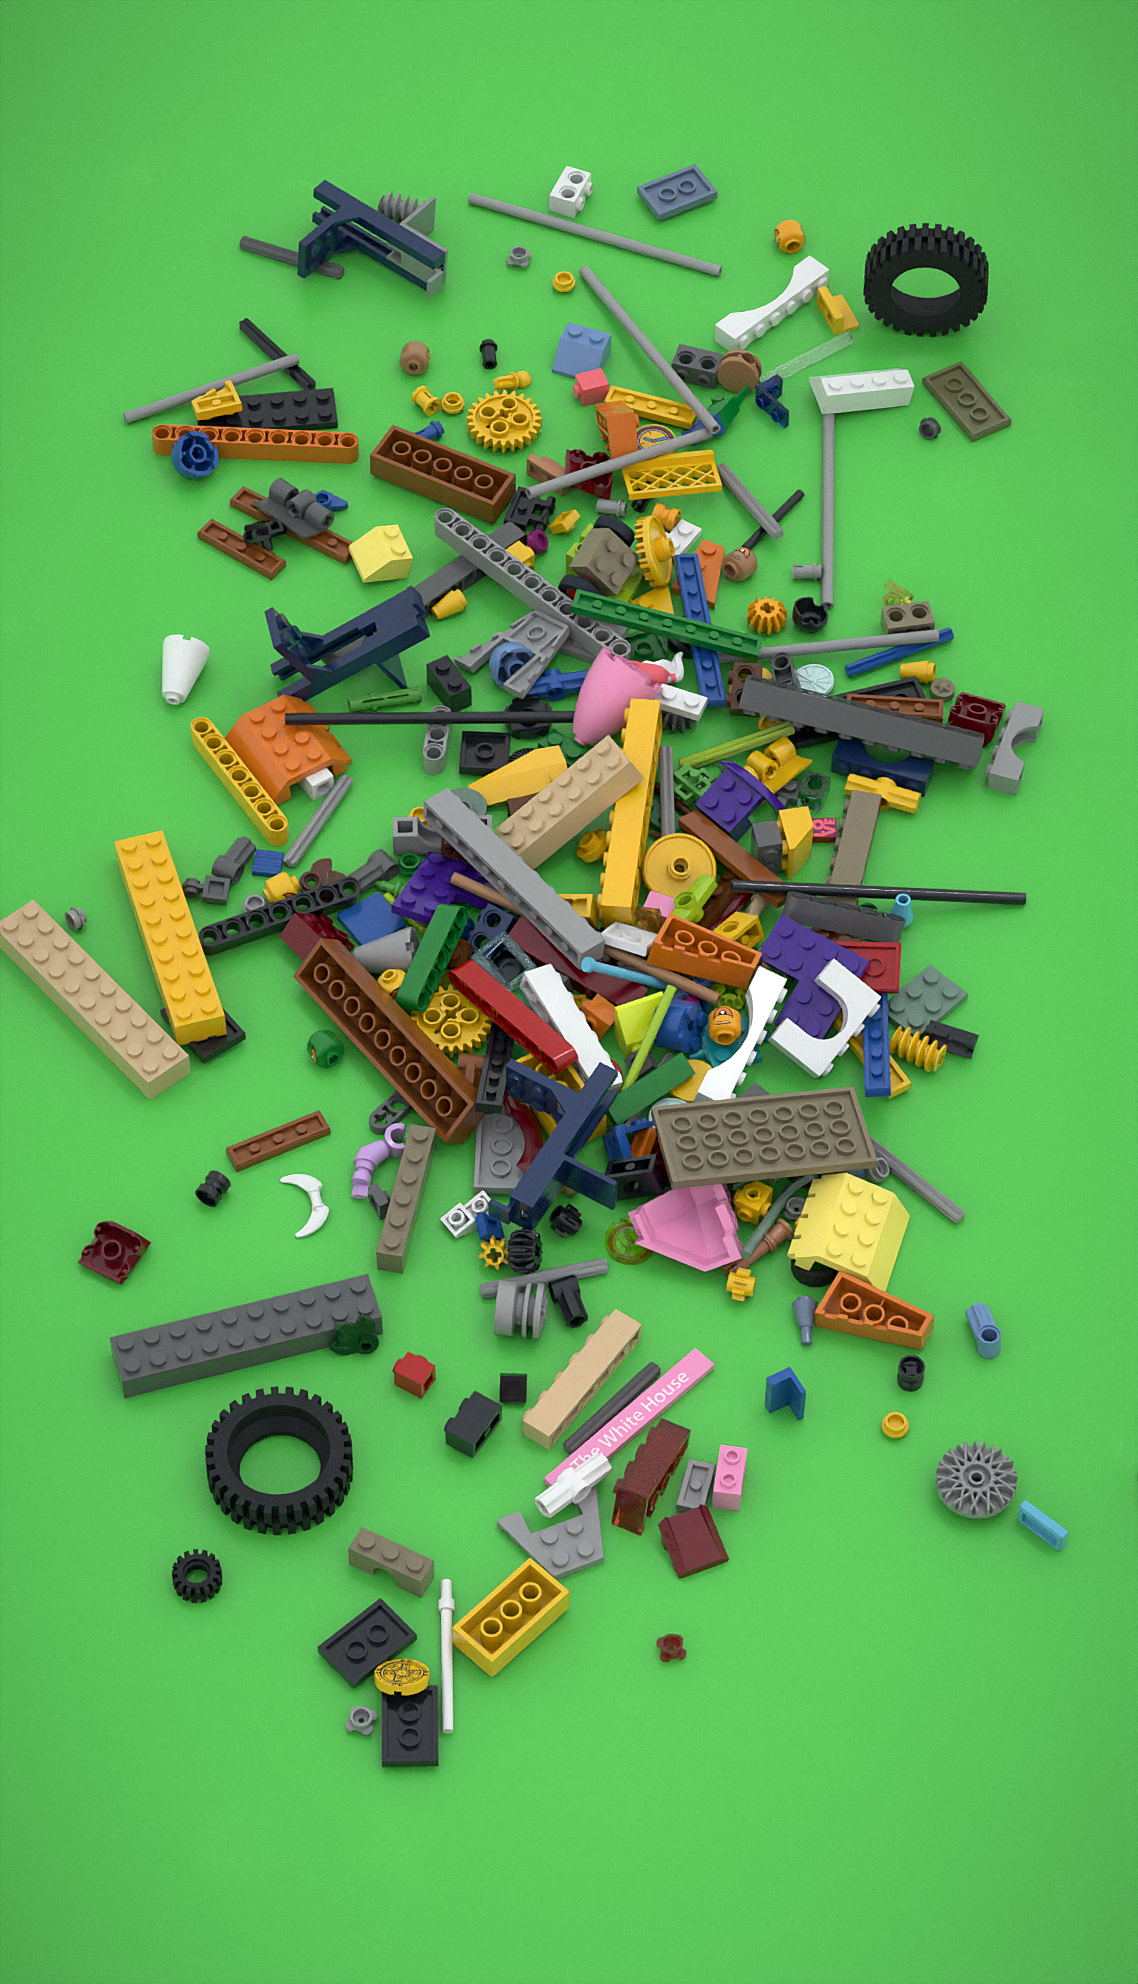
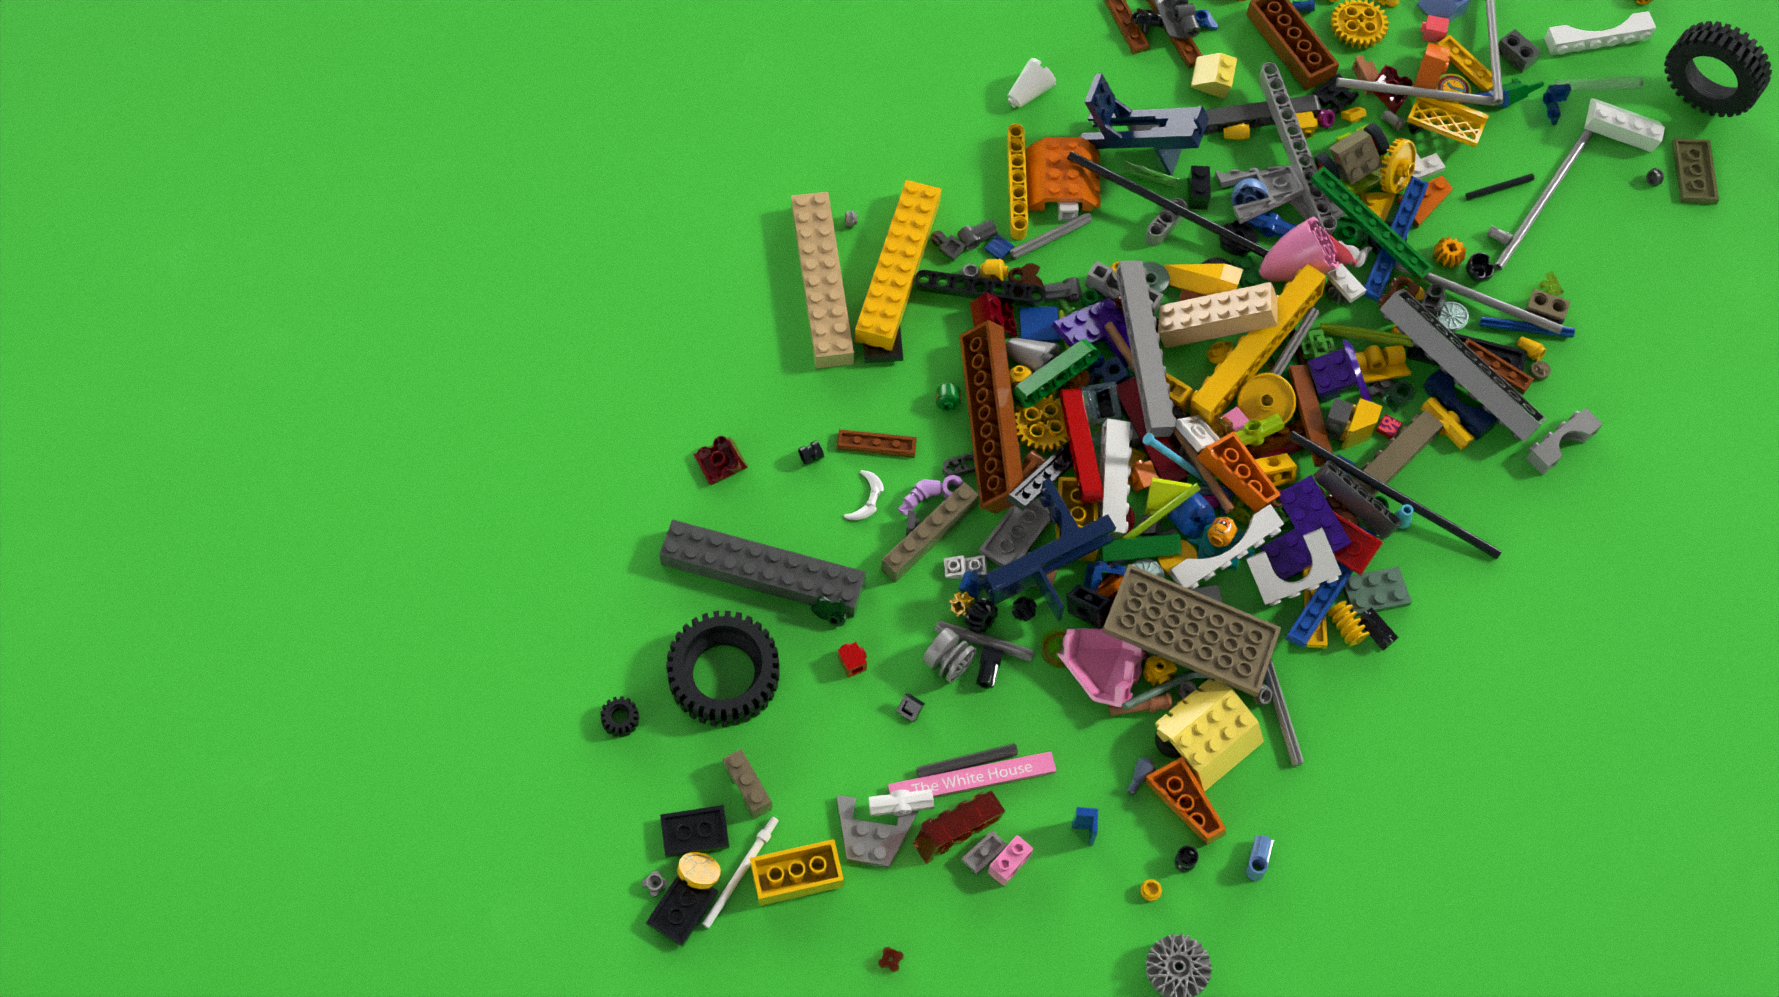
camera: 30 degrees right, 10 degrees up
(473, 1424) = (865, 718): black brick -> none
(483, 752) = (1191, 246): black plate -> none
(530, 1128) = (1043, 531): dark red sword -> none
(581, 1379) = (959, 728): tan brick -> none
(668, 517) = (1425, 145): light orange wheel -> none
(692, 1541) = (956, 891): dark red slope -> none
(738, 370) = (1544, 68): medium nougat head -> none
(740, 564) = (1455, 206): medium nougat head -> none
(741, 1284) = (1112, 724): yellow gear -> none
(749, 501) = (1491, 164): light grey axle -> none
(757, 905) = (1302, 458): tan pin -> none
(836, 311) = (1643, 60): yellow panel -> none
(976, 715) = (1551, 402): dark red slope -> none

